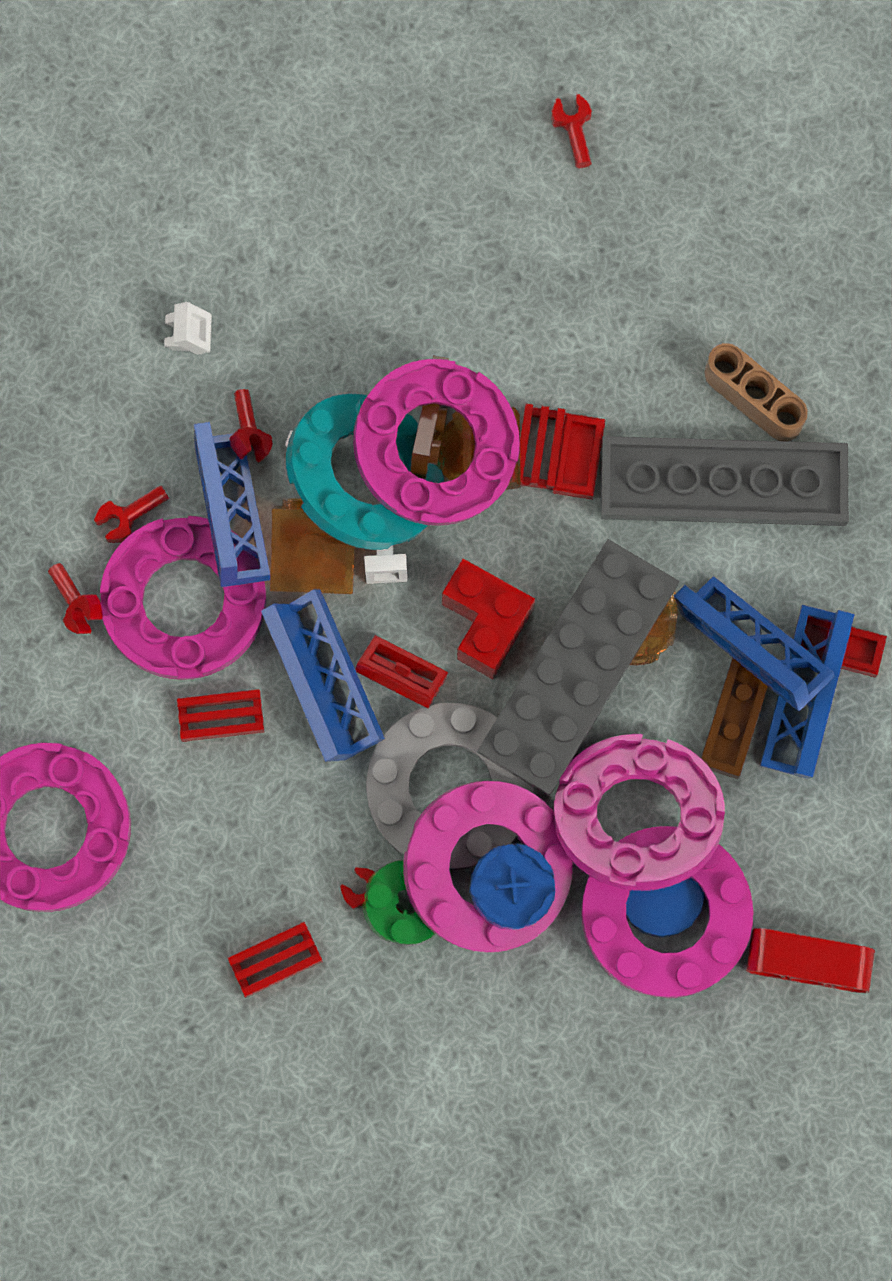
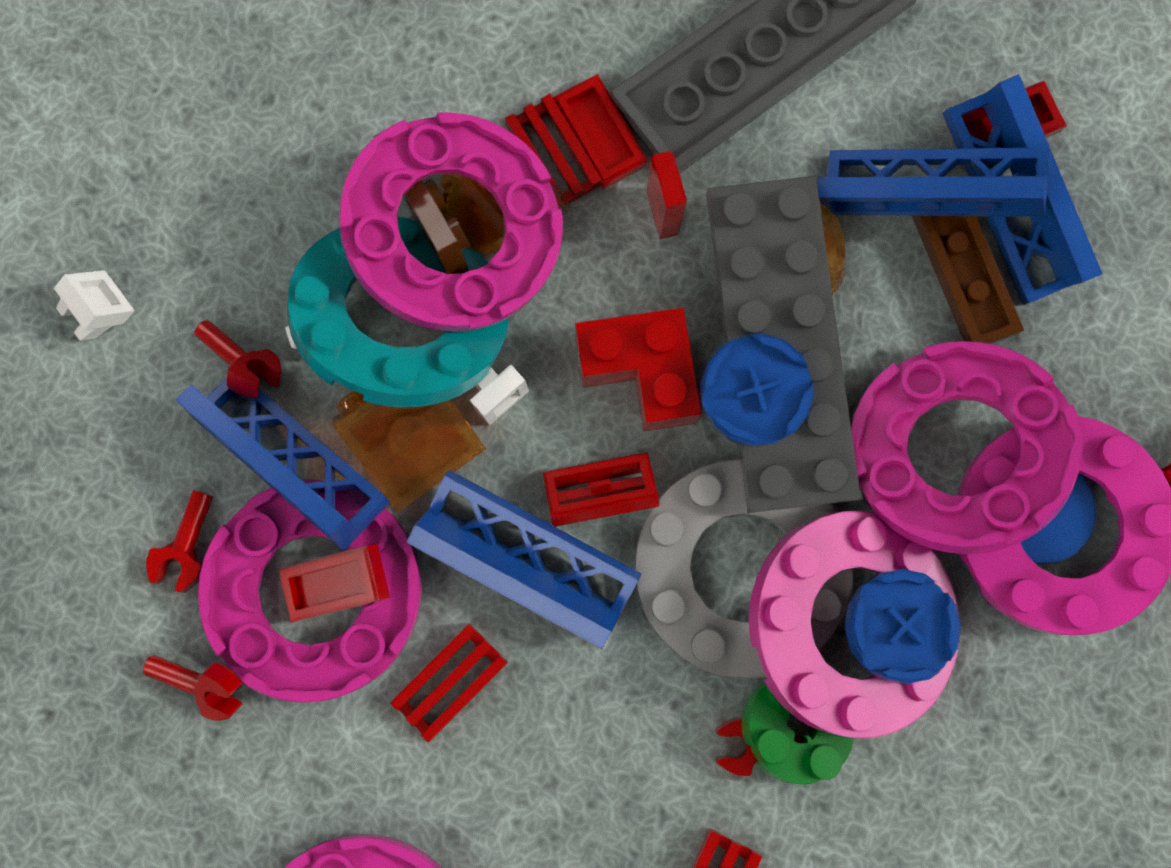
camera: 40 degrees left, 5 degrees up
(200, 602) = (334, 583): none -> red tile
(536, 678) = (756, 390): none -> blue tile
(580, 524) = (666, 194): none -> red tile

